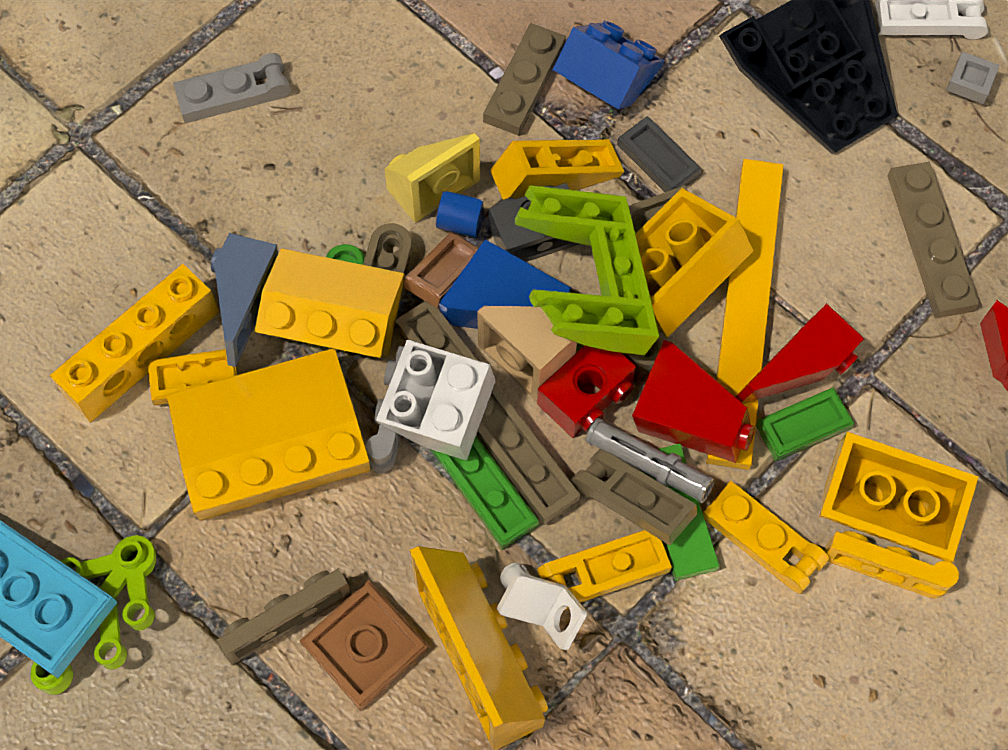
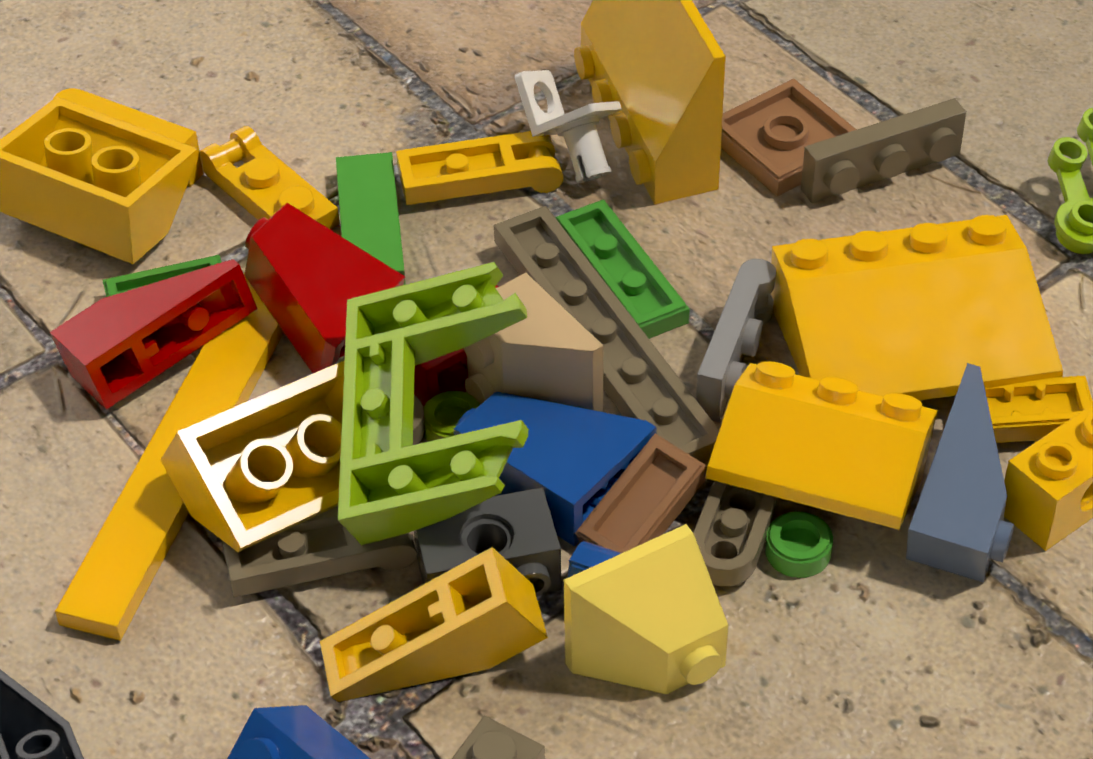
camera: 170 degrees left, 20 degrees down
(437, 399) = (667, 296): white slope -> none
(635, 496) = (424, 207): dark tan plate -> none
(658, 155) = (254, 656): dark grey tile -> none
(664, 467) = (375, 230): light grey pin -> none

